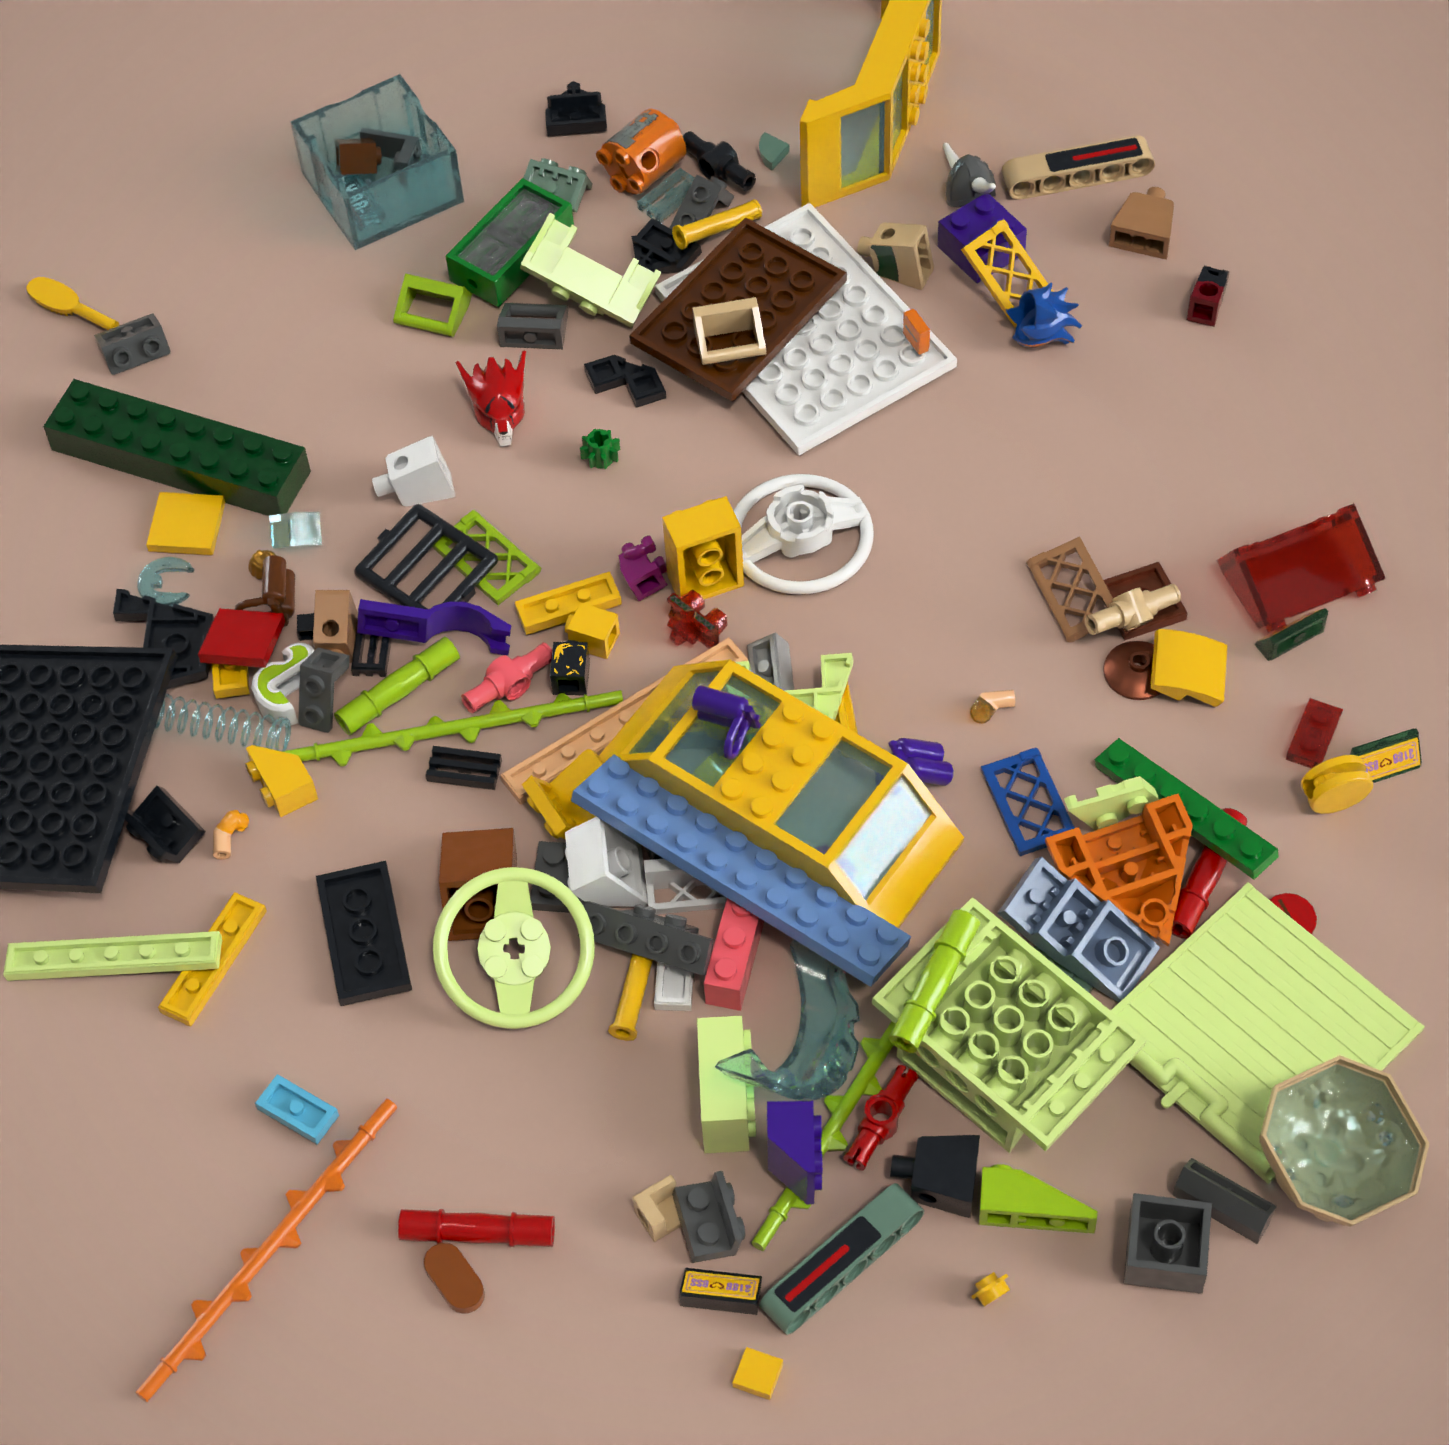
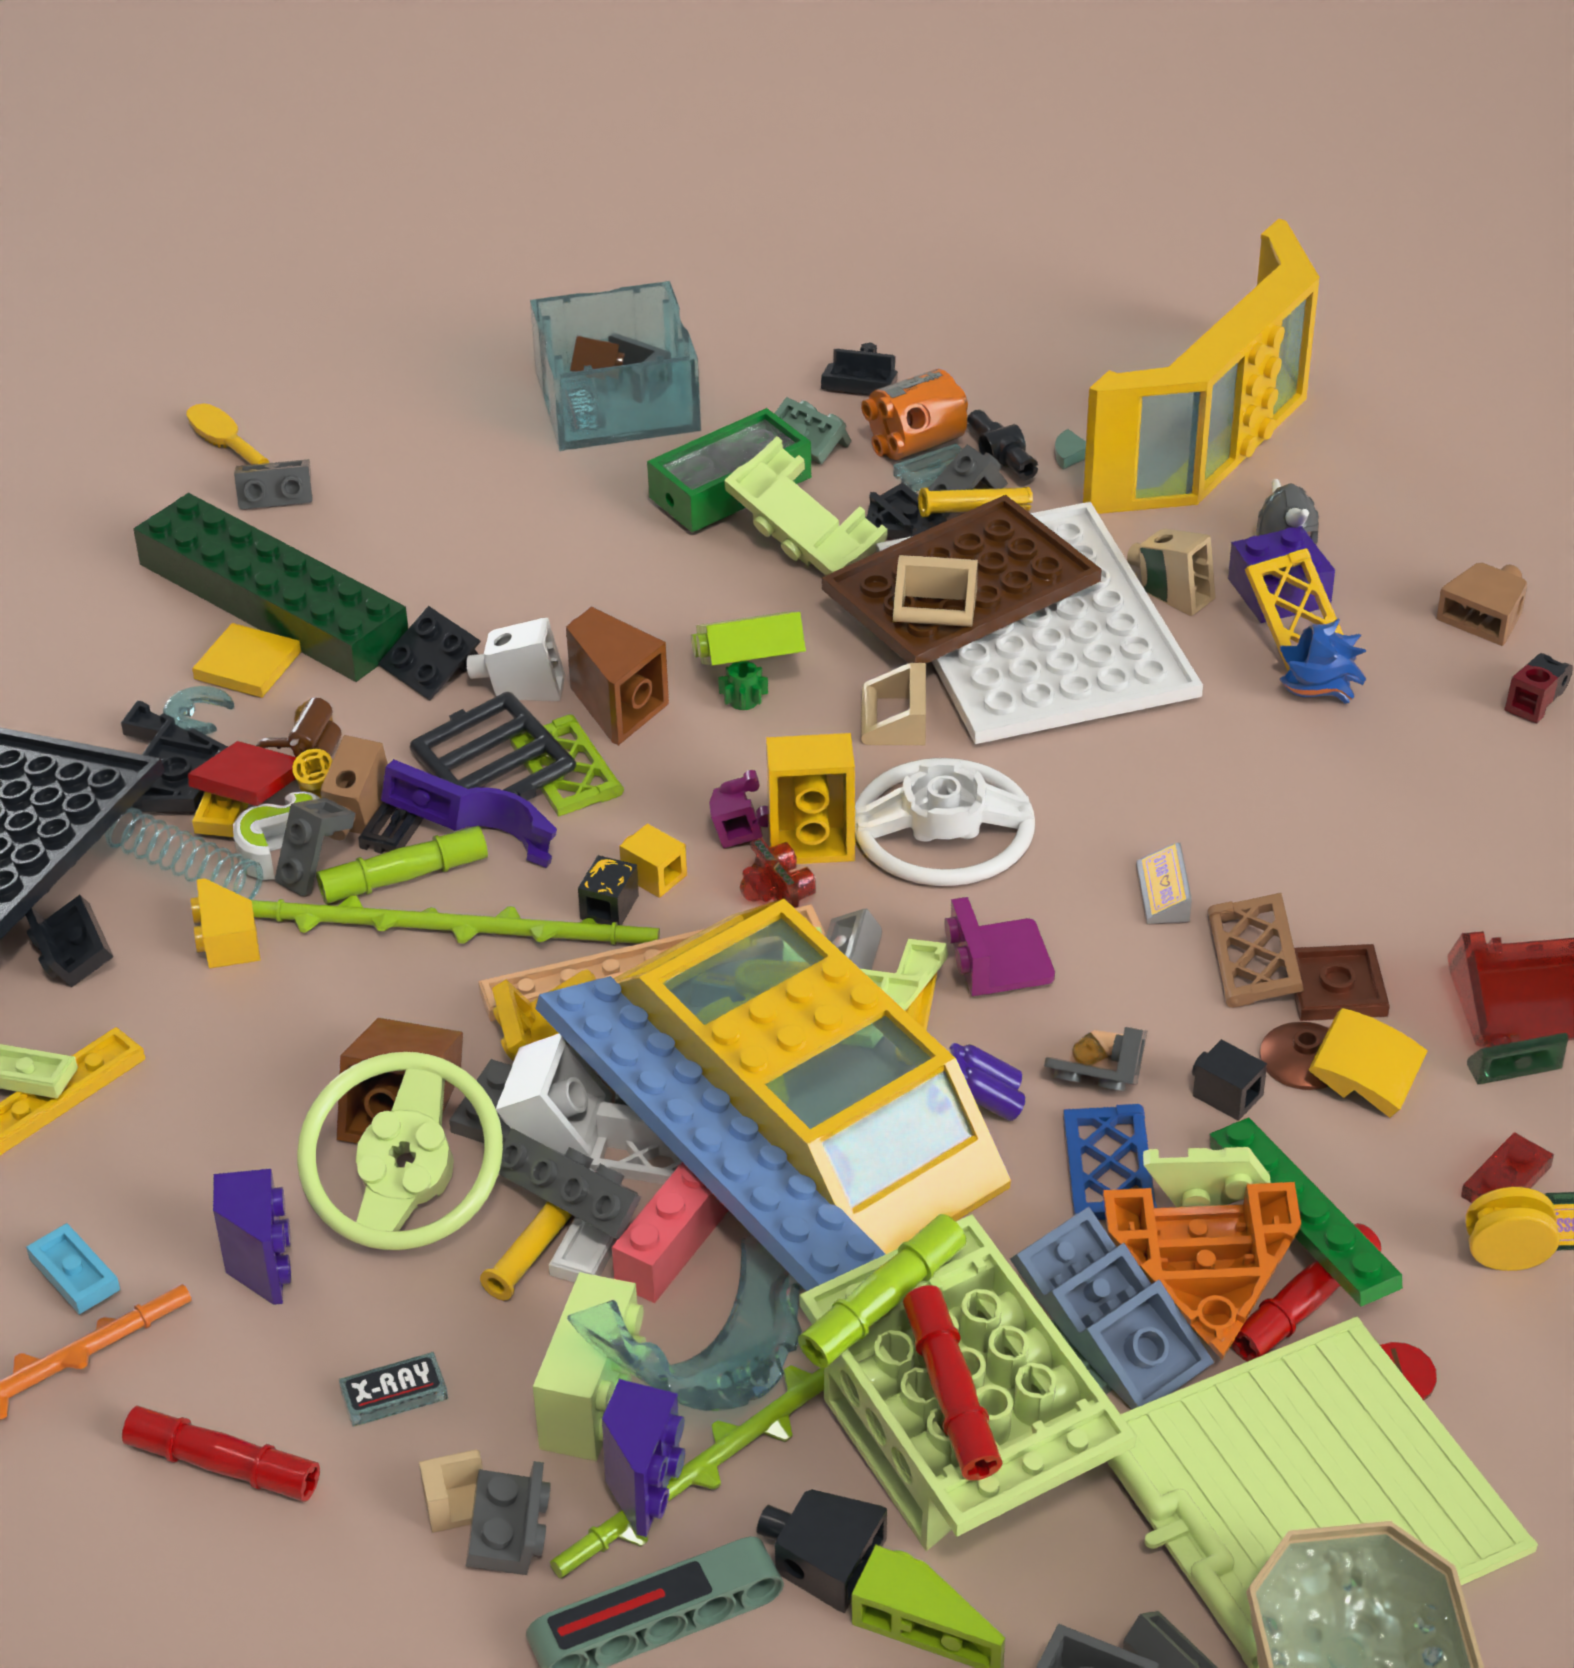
camera: 15 degrees right, 15 degrees down
(223, 831) = (134, 965): arm -> none
(295, 529) = (363, 687): clear light blue panel -> none
(303, 630) = (311, 769): none -> yellow wheel
(336, 481) = (430, 653): none -> black hinge
(363, 933) = (240, 1103): black plate -> none
(418, 285) = (607, 490): lime tile -> none
(428, 1045) = (251, 1231): none -> dark purple slope
(454, 1278) = (168, 1503): dark orange tile -> none
(465, 762) = (444, 961): black tile -> none
(497, 395) = (652, 599): red piece -> none
(498, 466) = (616, 672): none -> dark orange slope
(507, 678) = (529, 885): coral pin -> none
(532, 332) = (720, 556): dark grey tile -> none
(557, 604) = (610, 827): yellow plate -> none
(580, 1138) = (393, 1389): none -> tile
(592, 407) = (748, 638): none -> lime brick
(614, 372) = (822, 636): black tile -> none
(720, 1291) = (484, 1608): slope -> none
(727, 711) = (749, 942): dark purple piece -> none
(745, 455) = (906, 727): none -> tan tile
(876, 1132) = (773, 1460): red pin -> none
(886, 643) = (997, 954): none -> magenta bracket
(916, 331) = (1161, 642): orange tile -> none
(988, 549) = (1165, 886): none -> slope
(1008, 1039) = (952, 1383): none -> red piece
(1014, 708) = (1126, 1050): none -> dark grey bracket
(1078, 167) = (1426, 531): tan beam -> none
(1093, 709) = (1229, 1079): none -> black brick
(1132, 609) = (1316, 978): tan pin -> none

